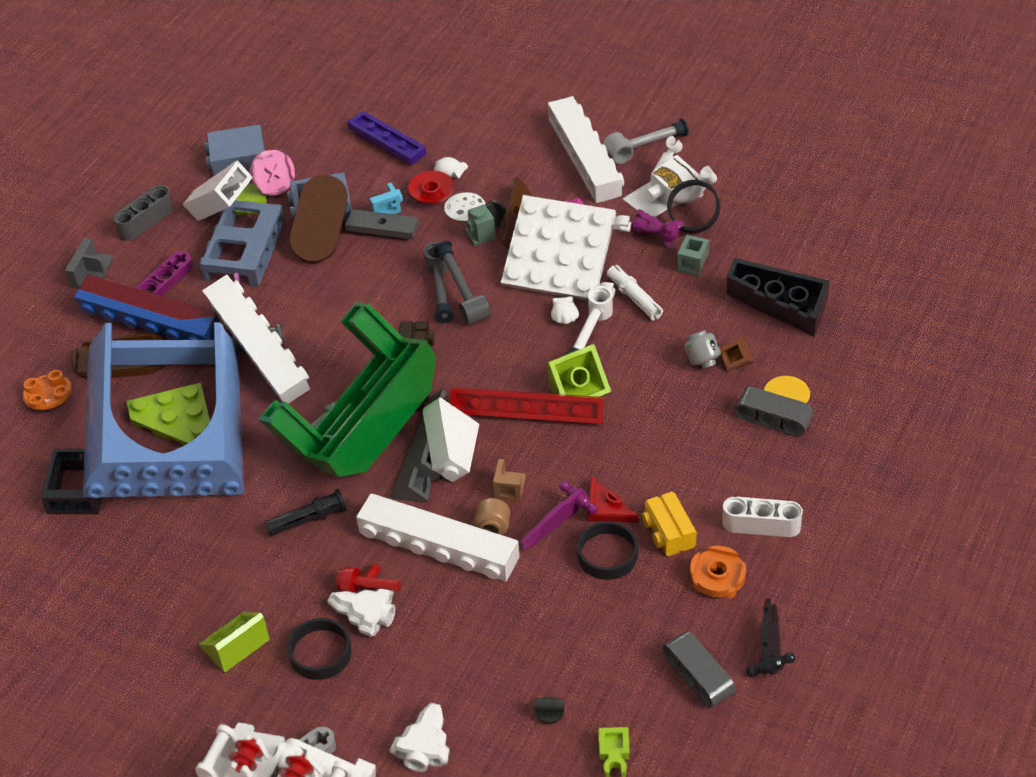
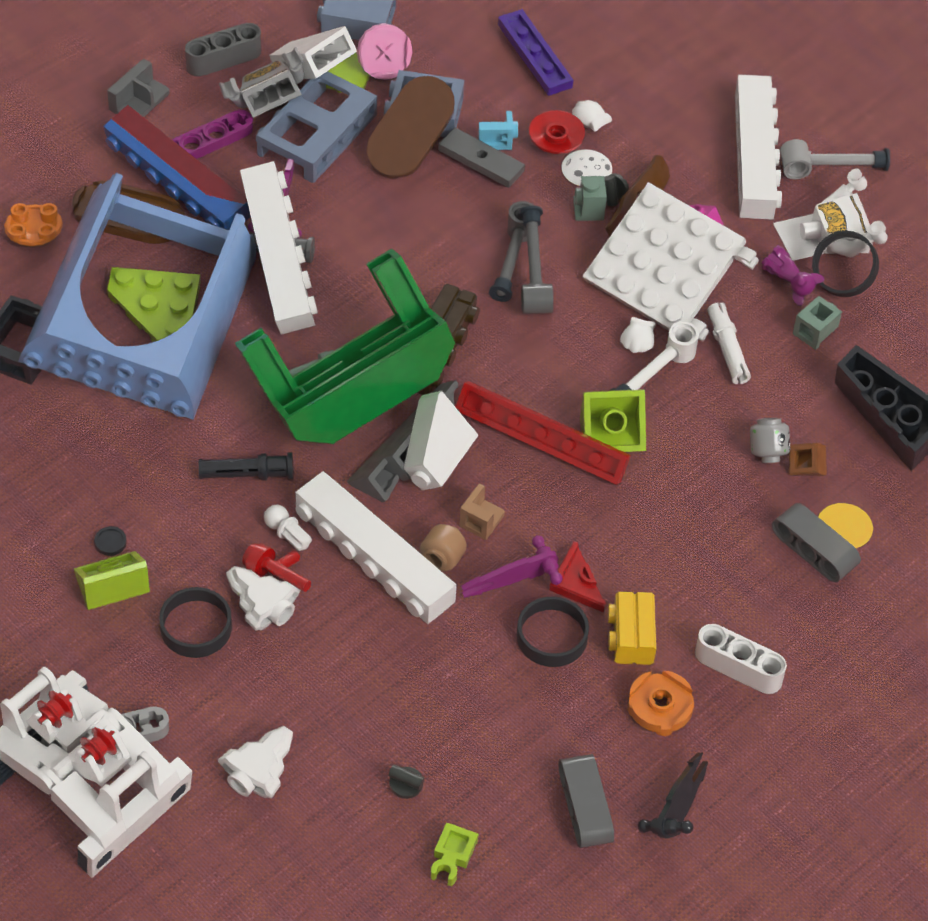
camera: 15 degrees right, 5 degrees up
(193, 224) = (267, 85): none -> light grey torso
(219, 611) = (110, 541): none -> black piece
(348, 543) = (278, 518): none -> white axle

